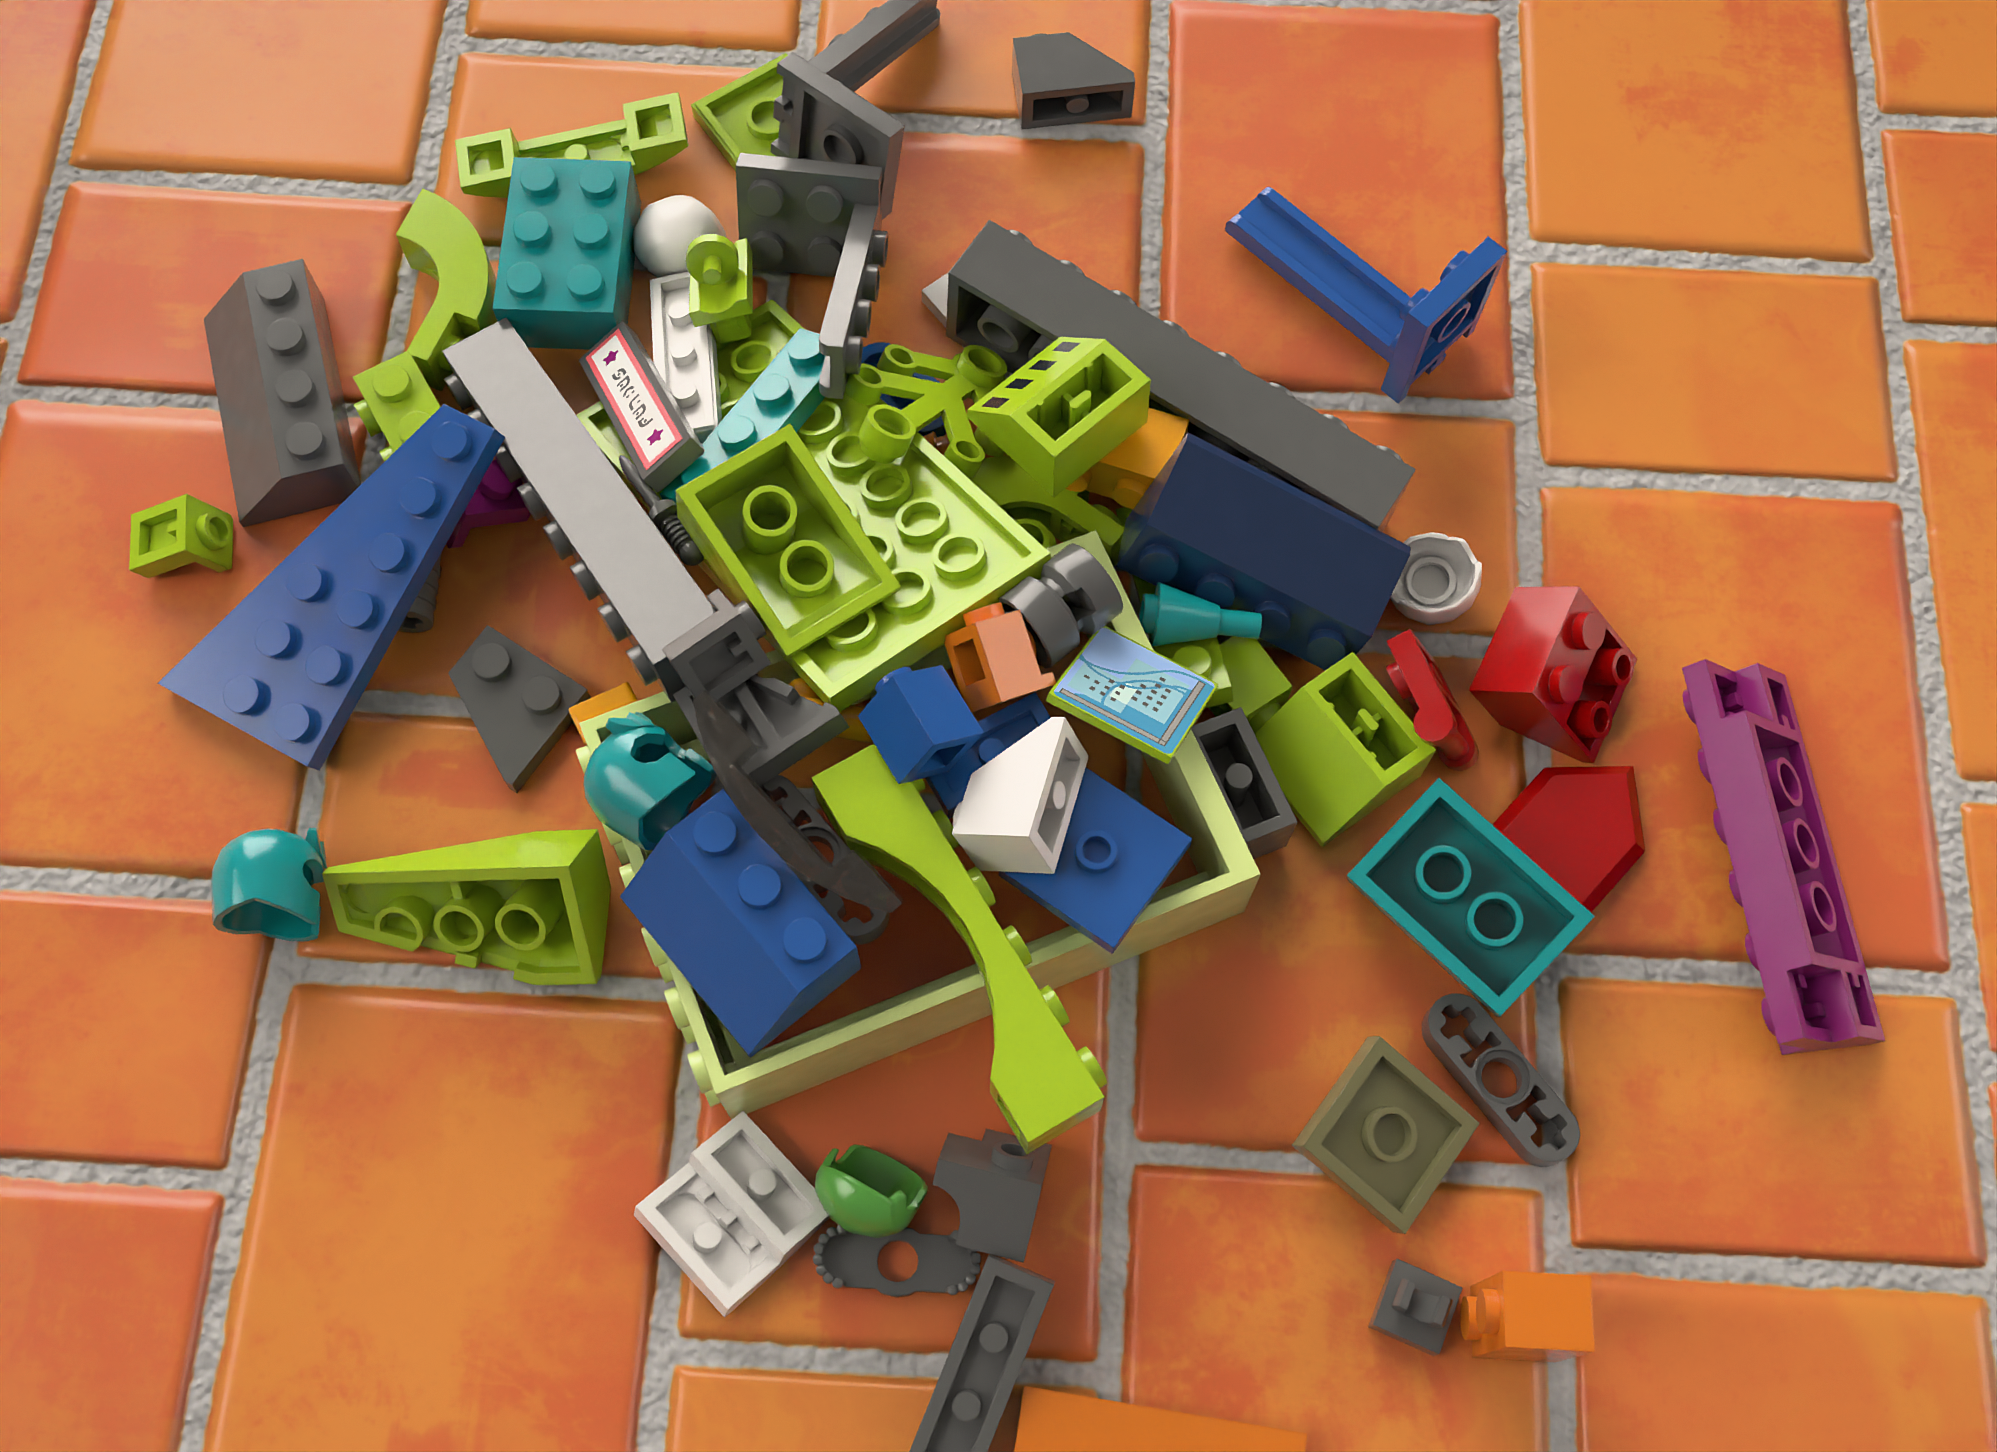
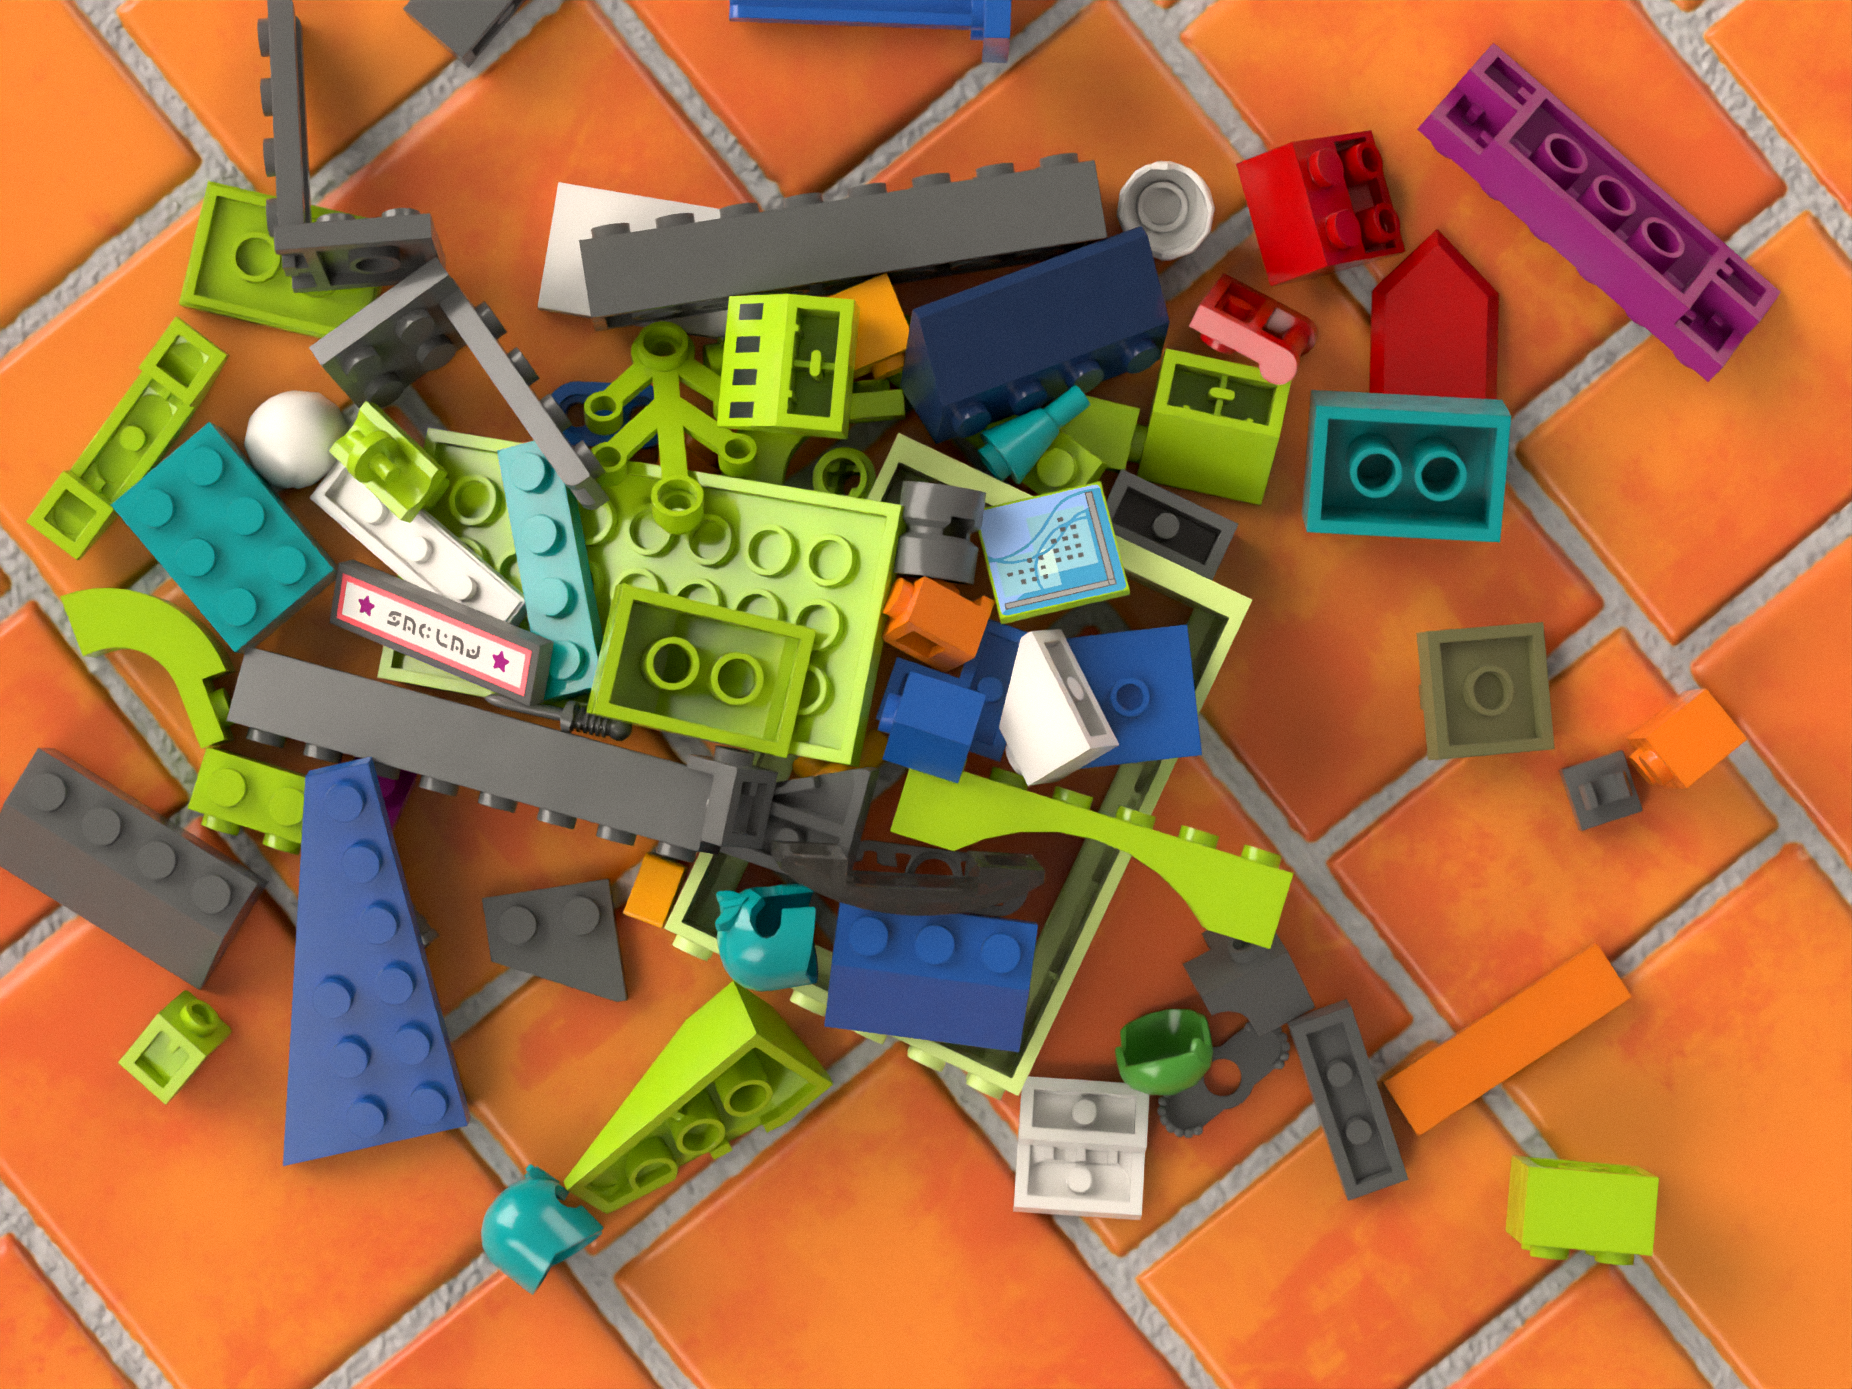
camera: 35 degrees left, 20 degrees up
(1548, 1104) = (1574, 597): dark grey beam -> none

